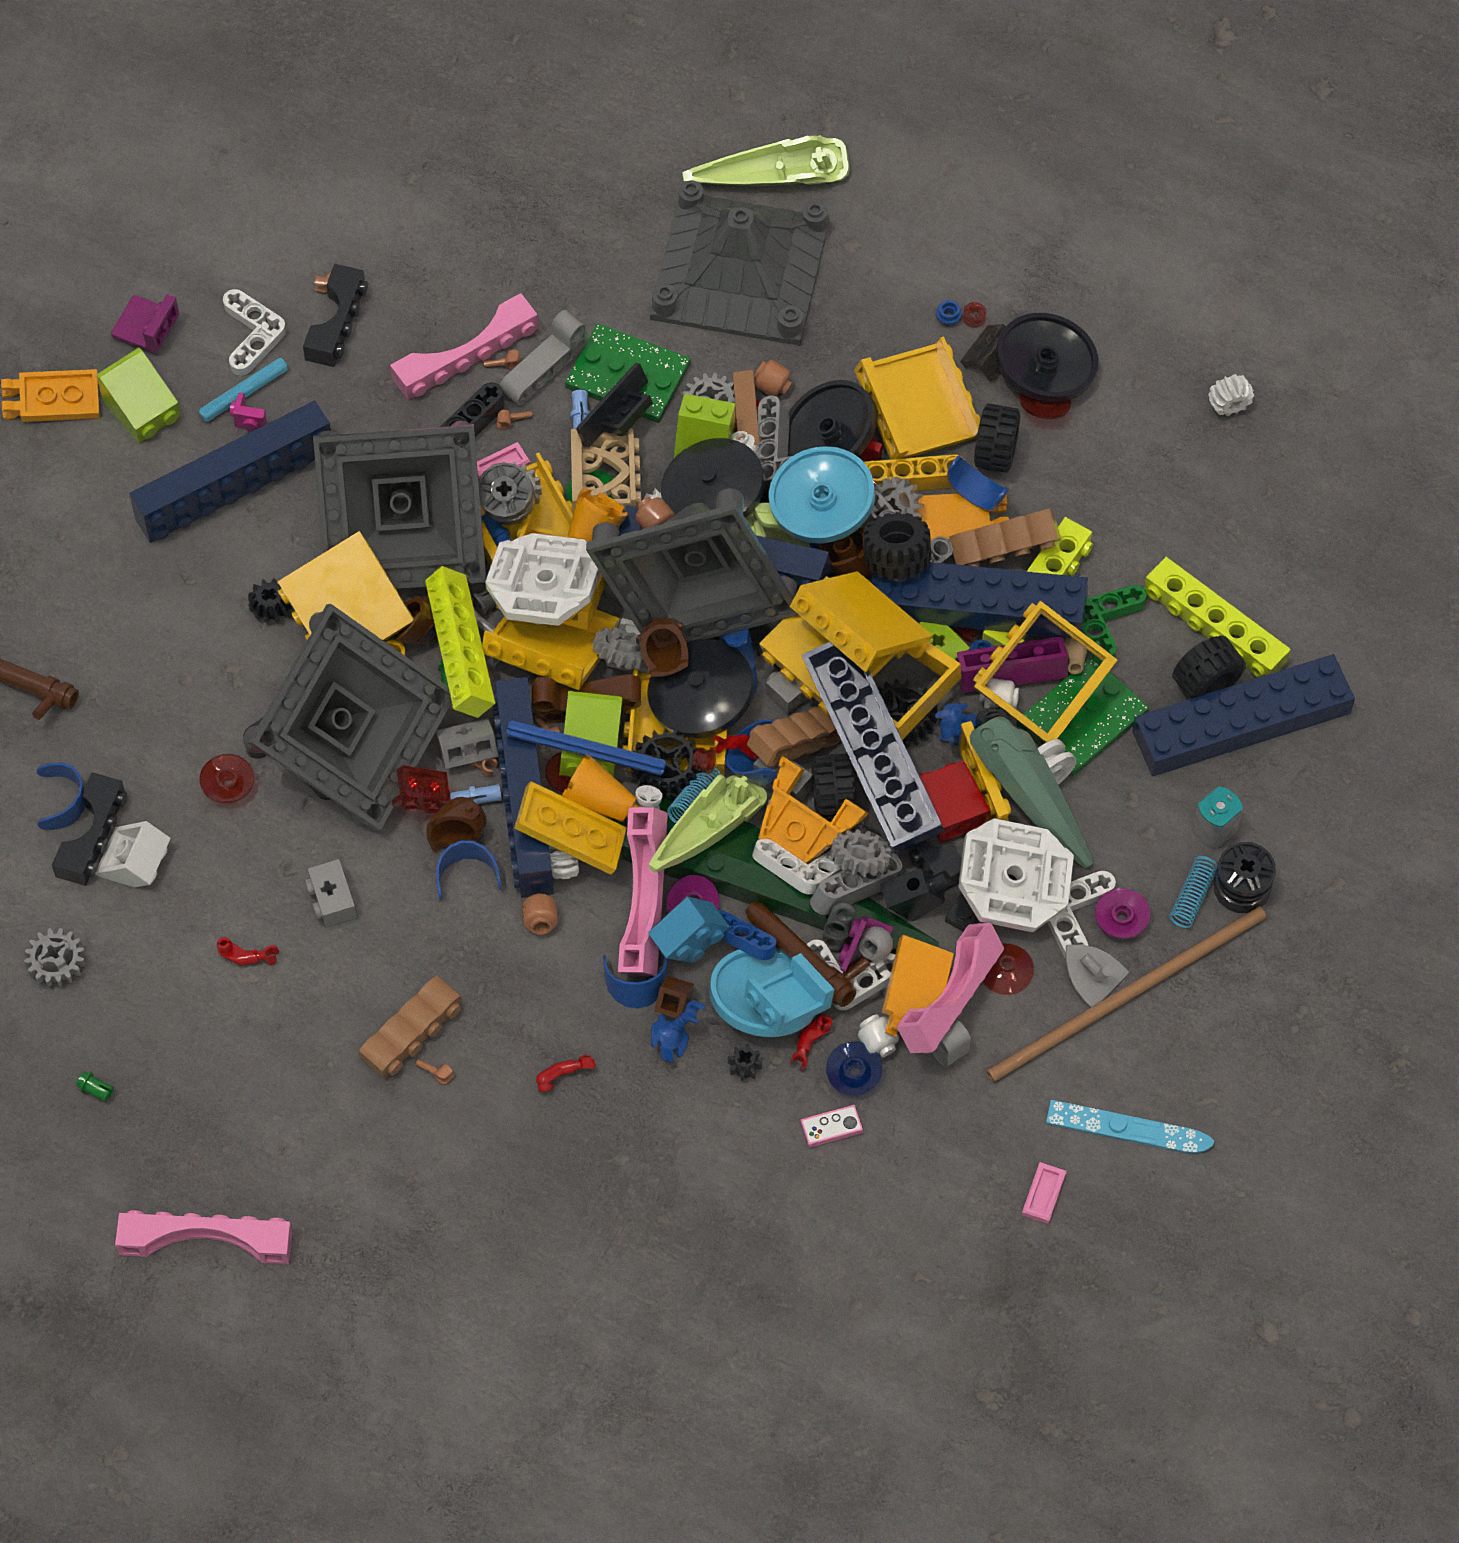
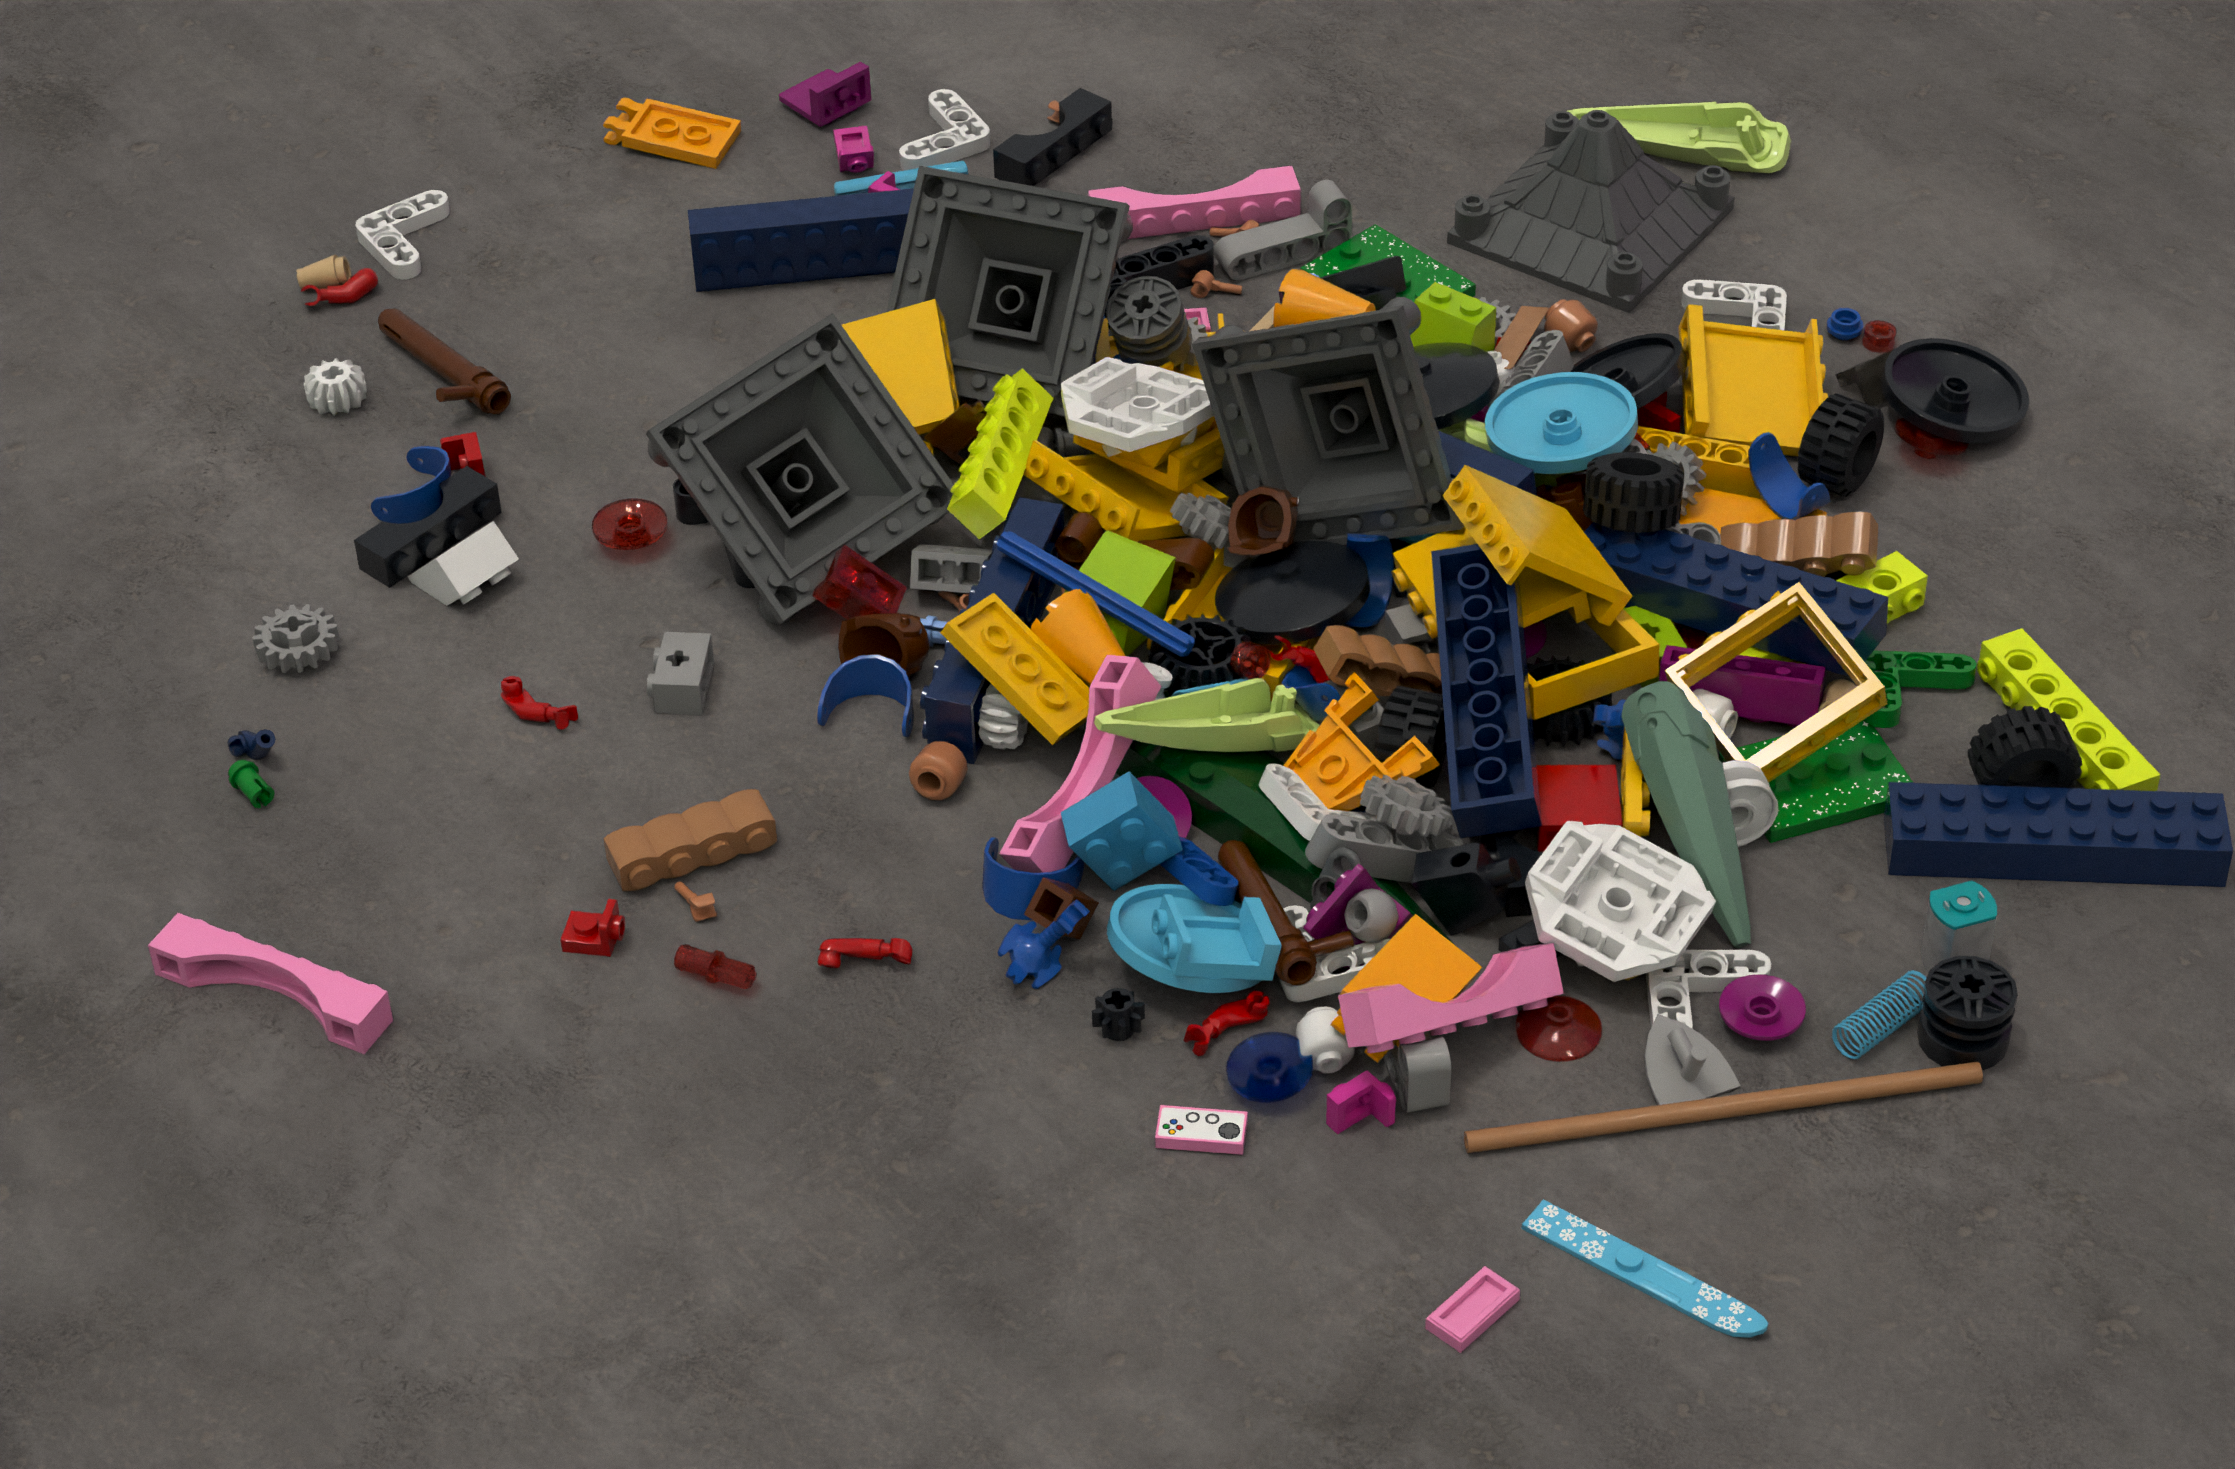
camera: 25 degrees right, 20 degrees down
(76, 1054) = (254, 745): none -> dark blue arm
(82, 756) = (463, 451): none -> red bracket
(138, 396) = (768, 145): lime slope -> none
(195, 372) = (853, 149): none -> dark pink bracket
(385, 1119) = (594, 932): none -> red bracket
(478, 1118) = (715, 966): none -> clear red axle
(617, 440) = (1314, 299): none -> light orange cone
(881, 313) = (1714, 294): none -> white beam
(912, 1074) = (1358, 1099): none -> dark pink bracket
(1231, 395) = (2199, 490): white gear -> none

